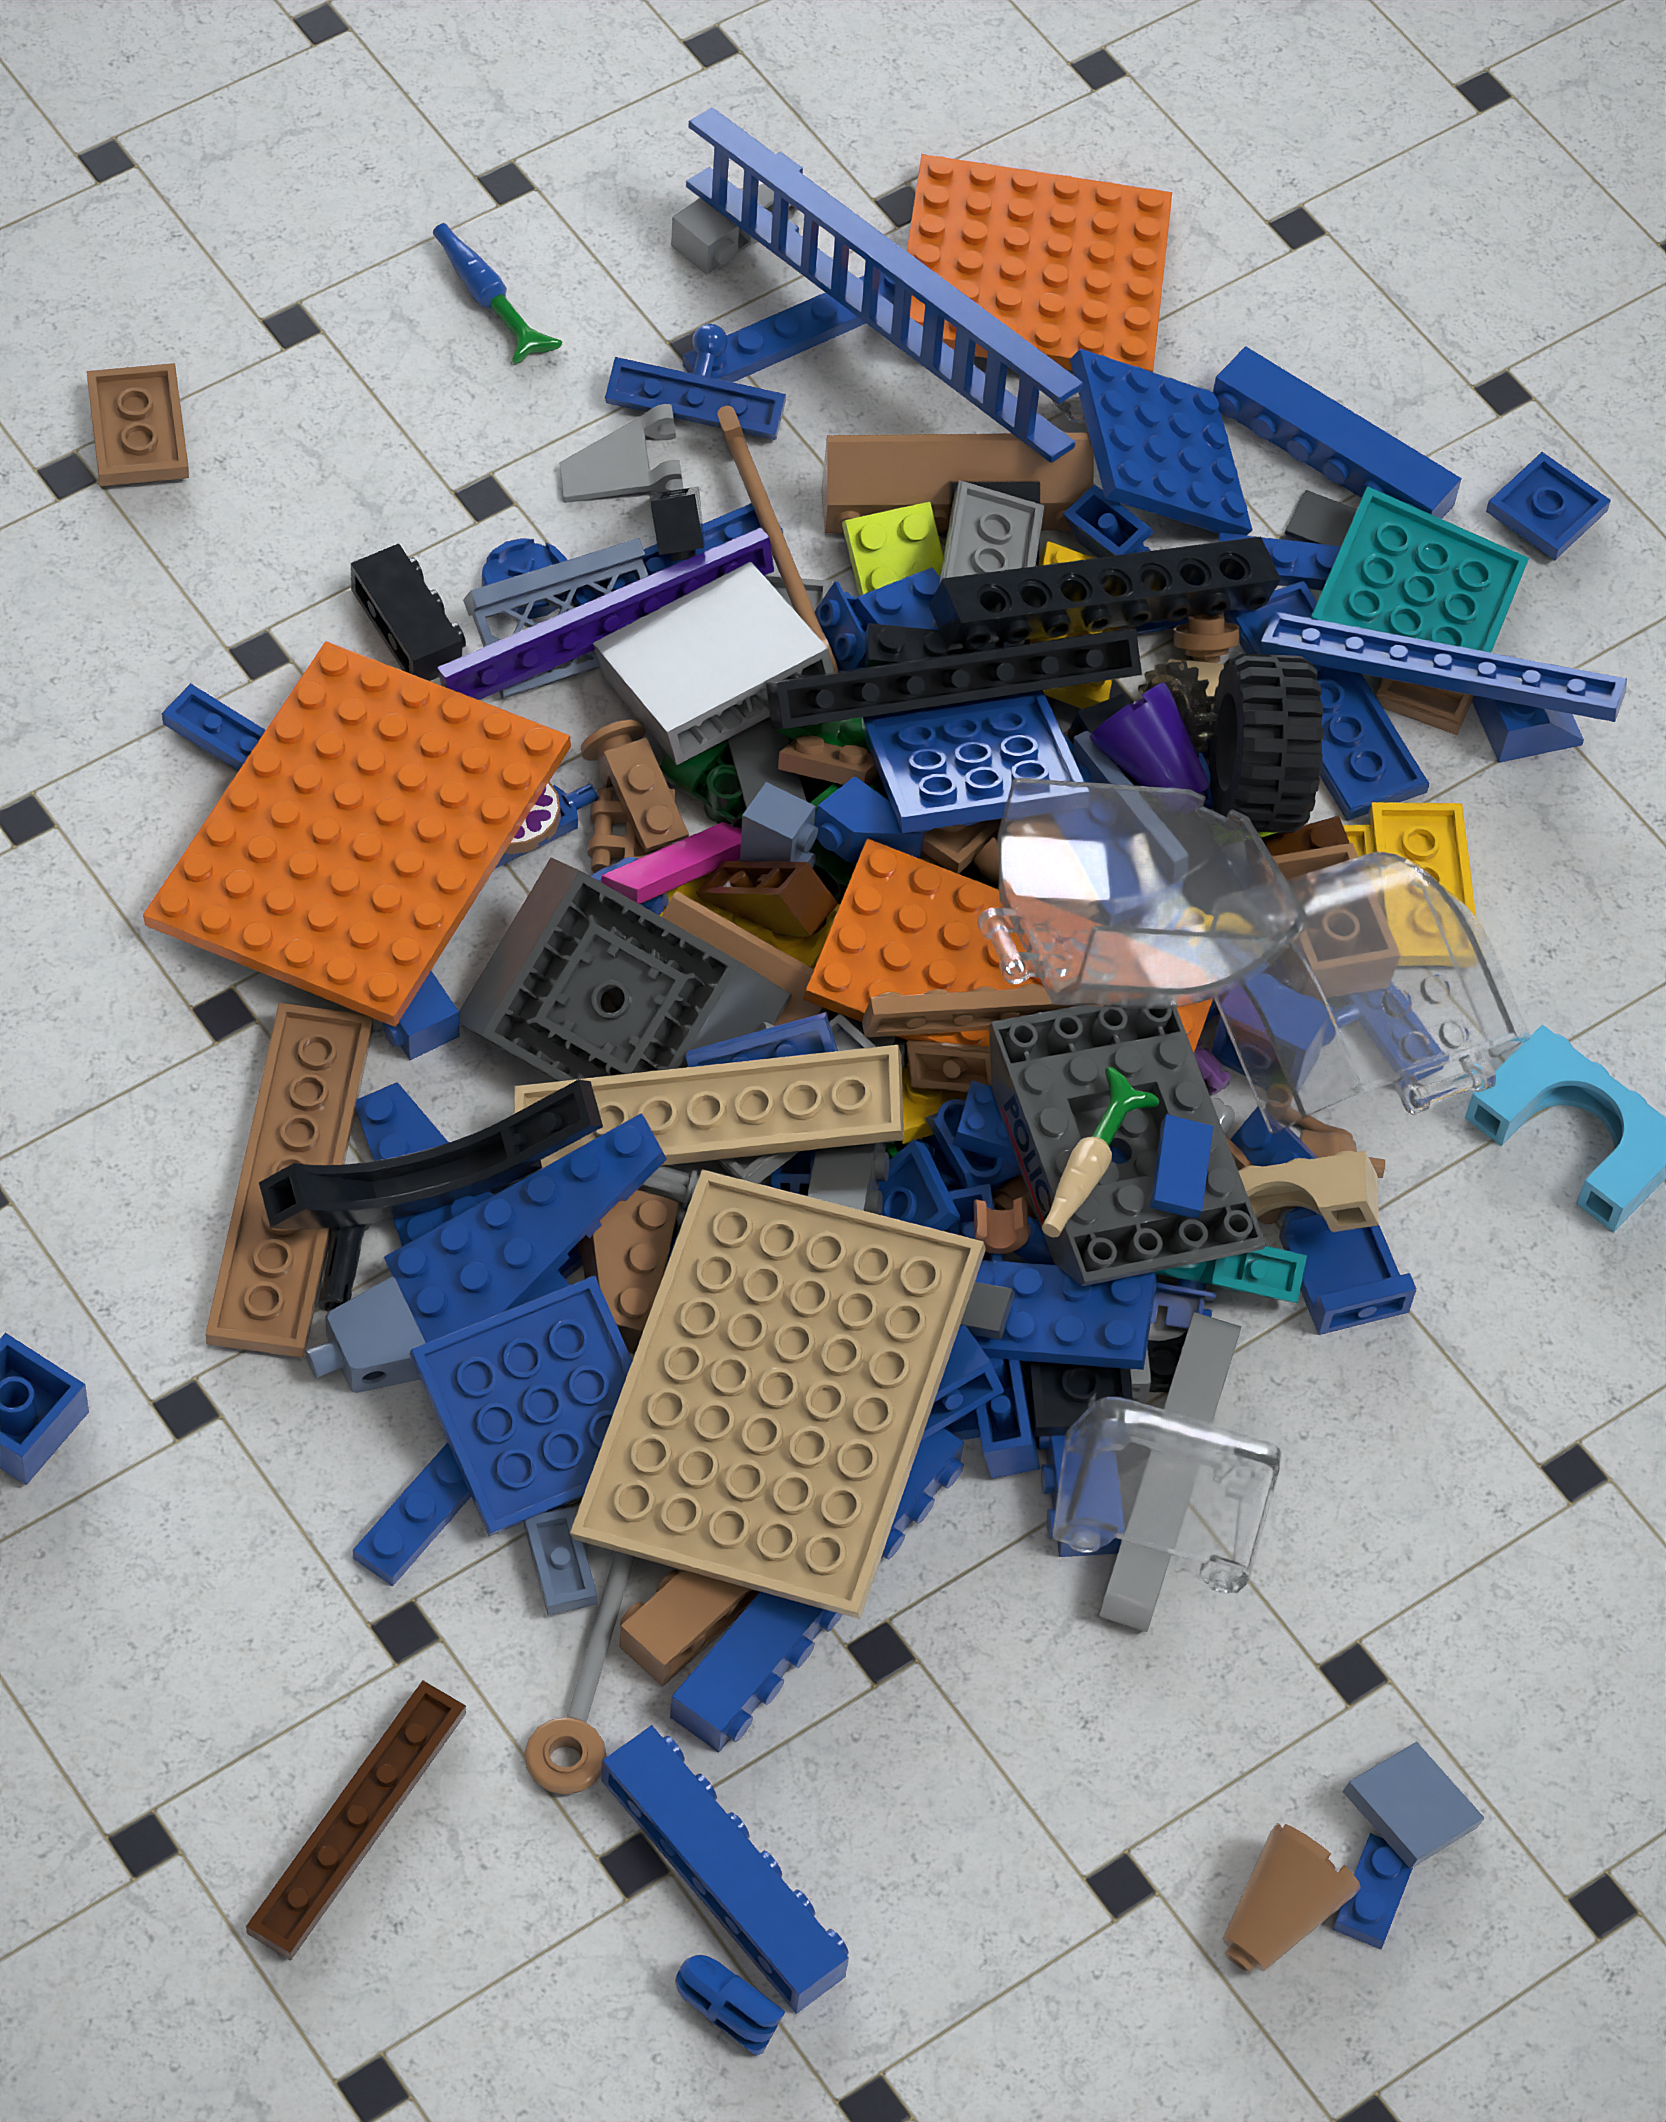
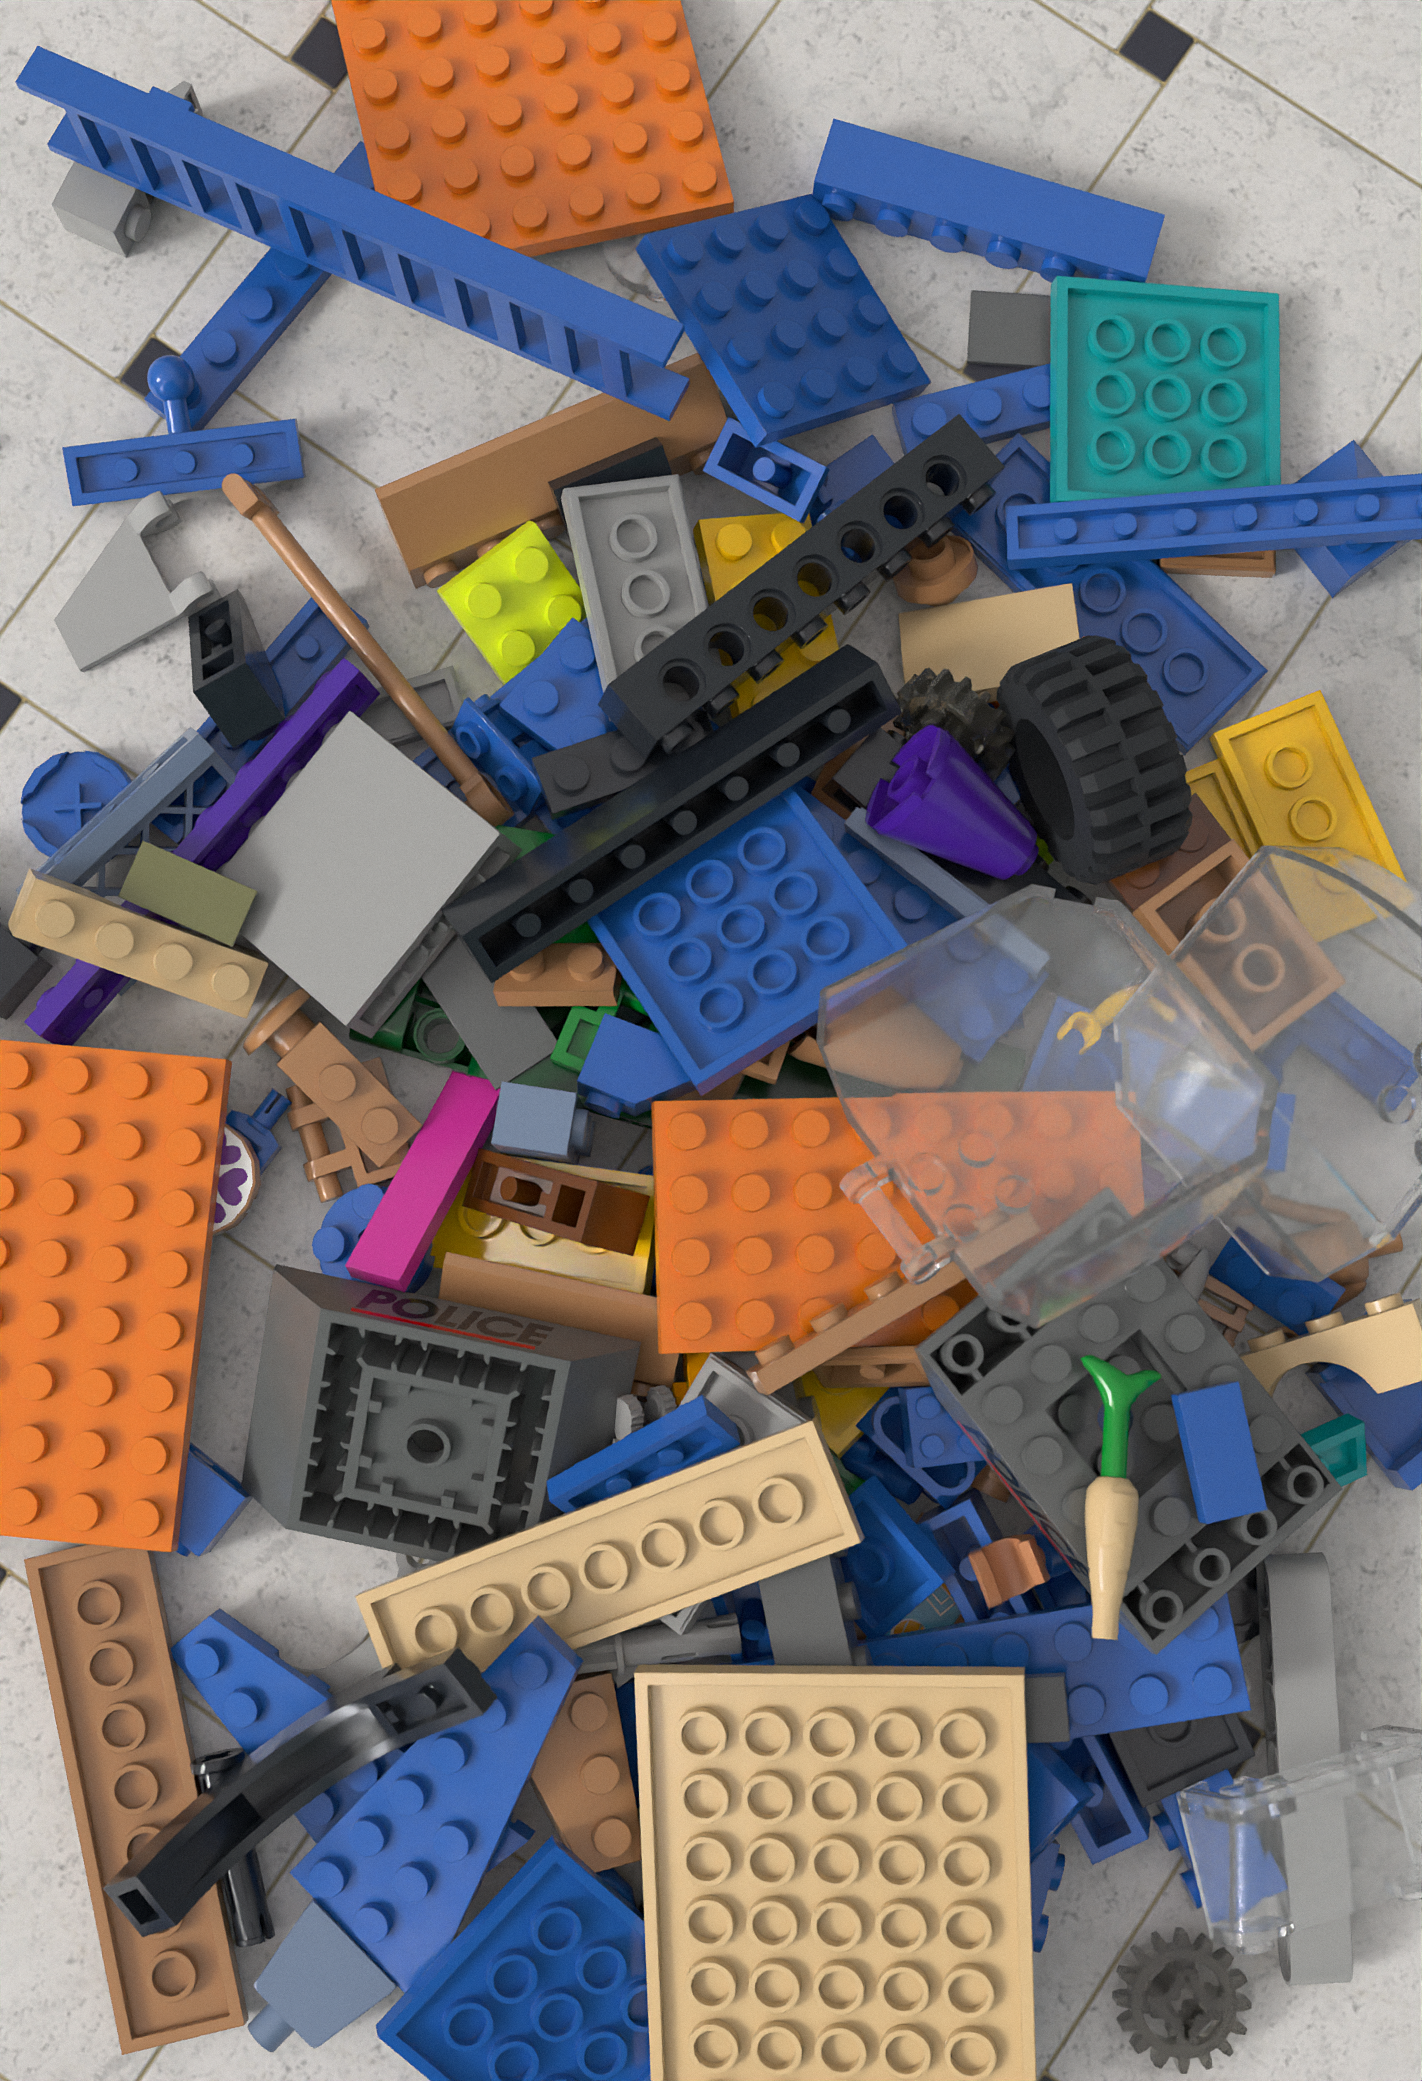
camera: 20 degrees left, 25 degrees up
(512, 616) = (136, 945): none -> tan arch
(590, 624) = (187, 893): none -> olive tile
(1032, 1608) = (1208, 2001): none -> clear smoke gear
(1548, 505) = (1273, 202): blue plate -> none

